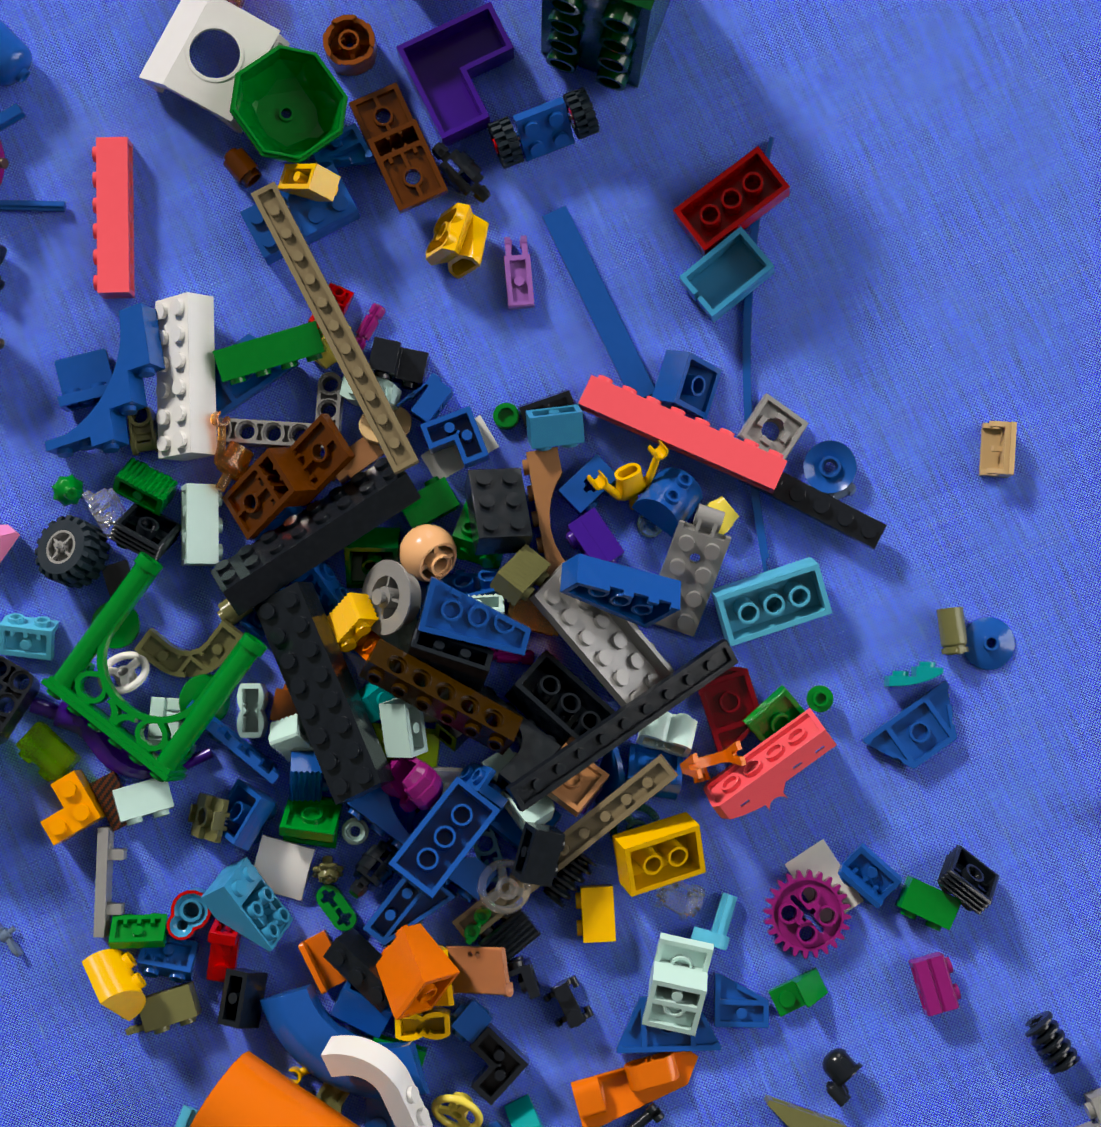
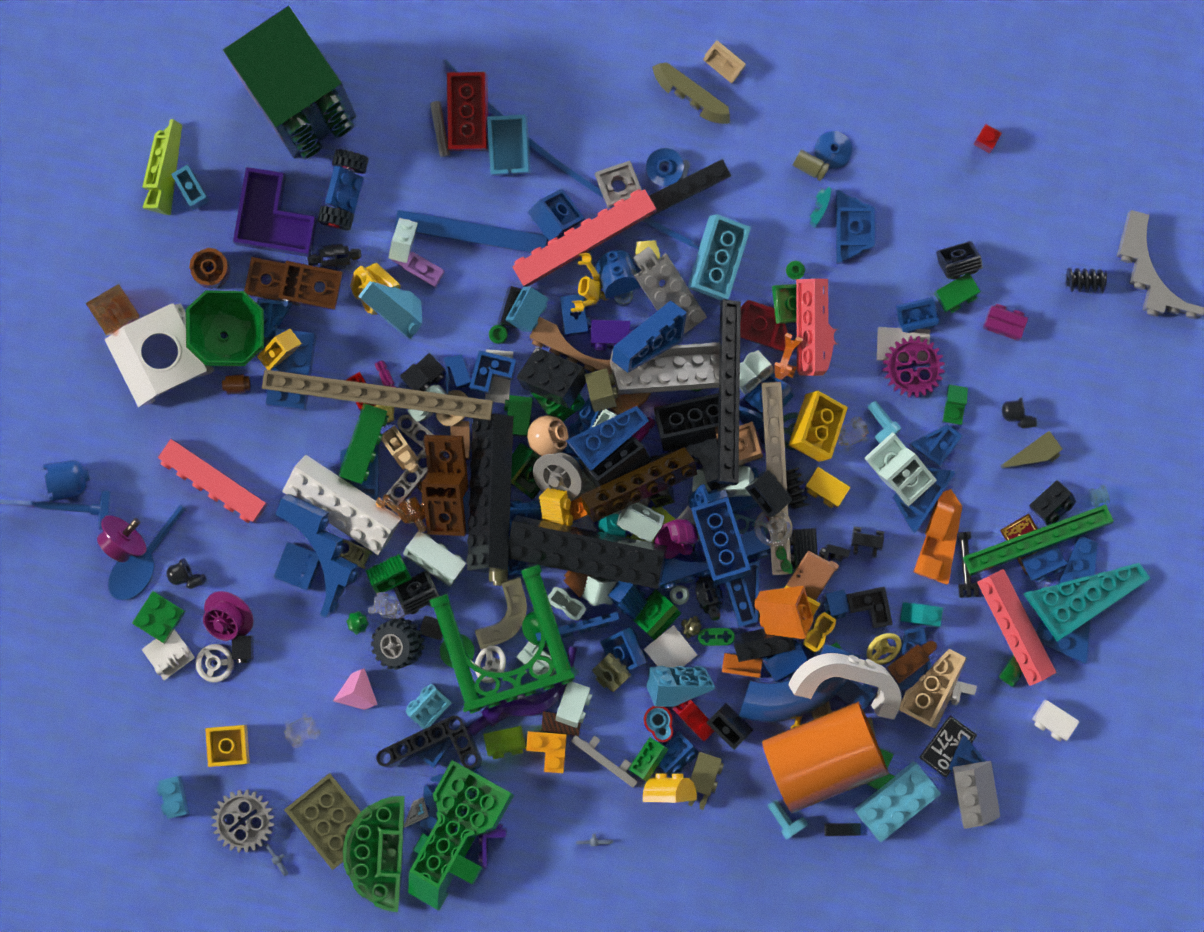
camera: 45 degrees left, 0 degrees up
(294, 397) = (400, 449): none -> tan hinge
(452, 280) = (395, 306): none -> medium azure wedge
(533, 233) = (403, 240): none -> light aqua brick
(691, 186) = (440, 128): none -> light grey axle
(935, 404) = (699, 98): none -> olive brick

